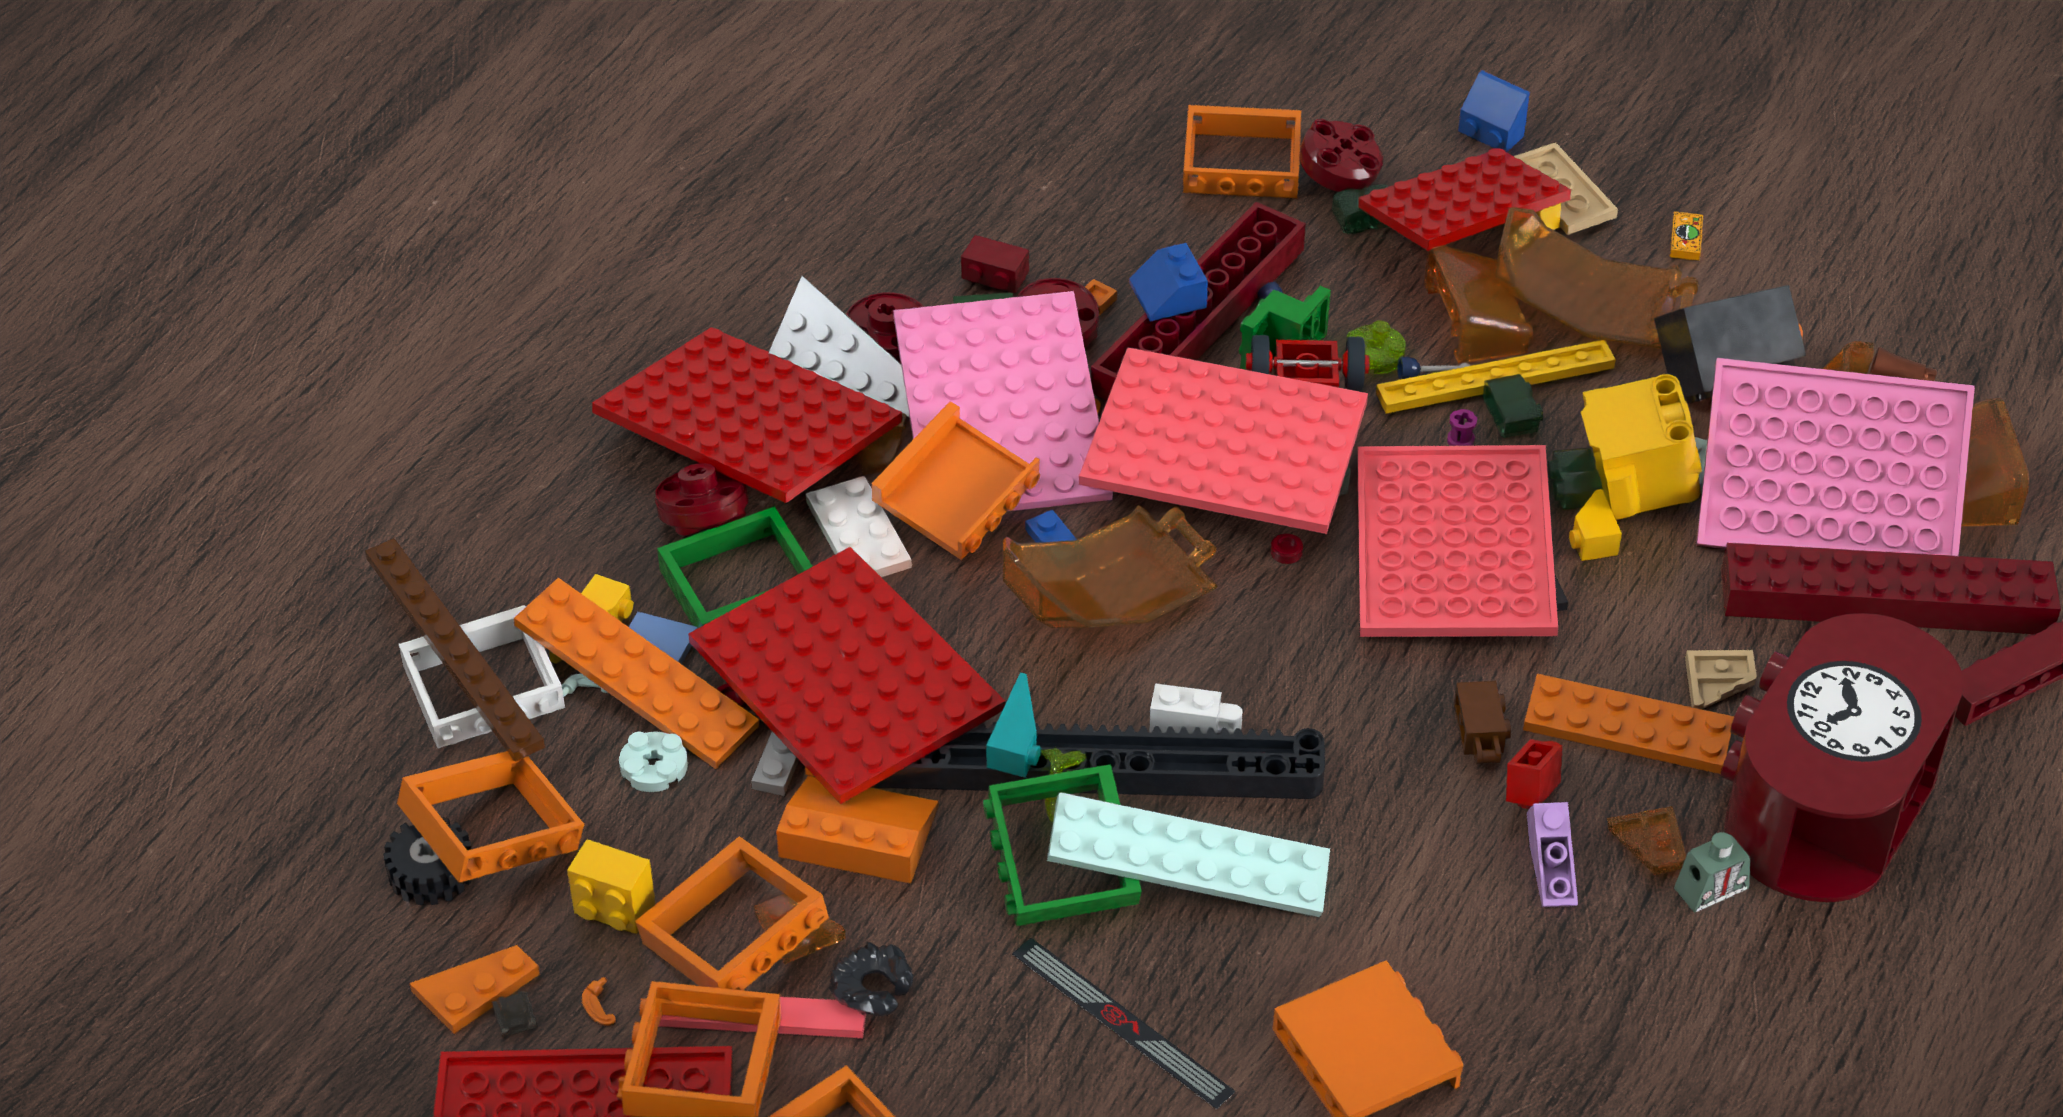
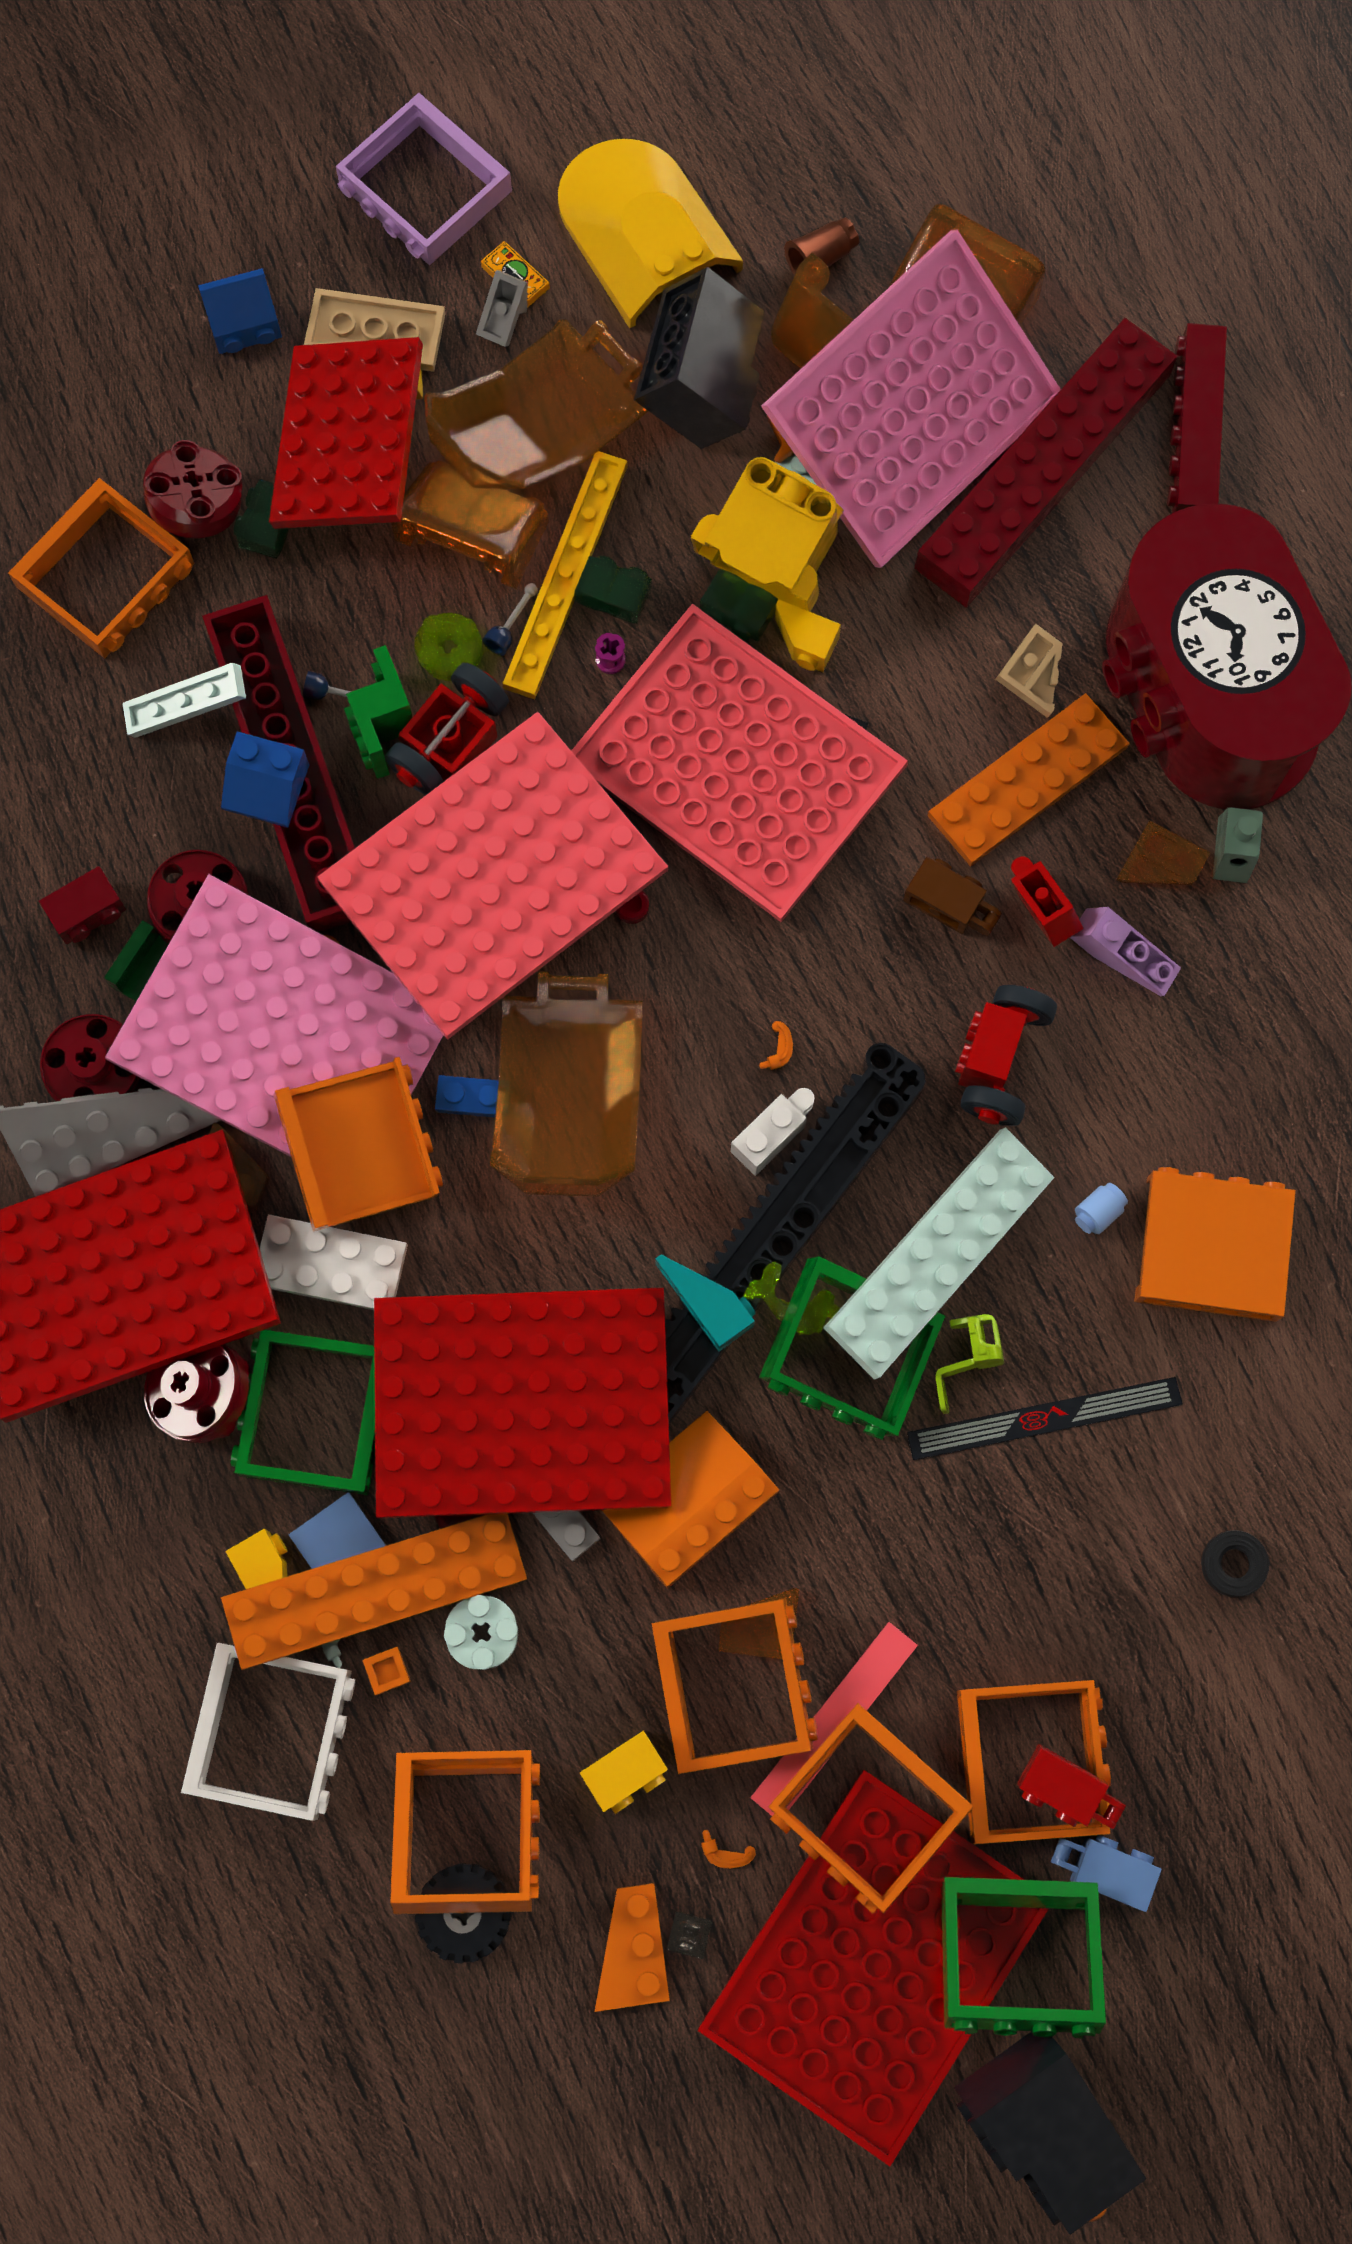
camera: 55 degrees left, 30 degrees up
(455, 650) = (227, 1745): reddish brown plate -> none
(579, 719) = (386, 1671): none -> orange plate
(851, 970) = (851, 1612): black piece -> none
(1103, 294) = (189, 836): orange tile -> none
(1128, 933) = (984, 1354): none -> lime piece
(1188, 228) = (184, 700): none -> light aqua plate
(1262, 695) = (784, 1048): none -> orange piece
(1325, 955) = (1100, 1208): none -> light blue brick
(1385, 806) = (993, 1045): none -> brick
(1655, 232) = (503, 305): none -> light grey slope
(1701, 120) = (389, 135): none -> lavender window
(1817, 261) = (638, 222): none -> yellow windscreen

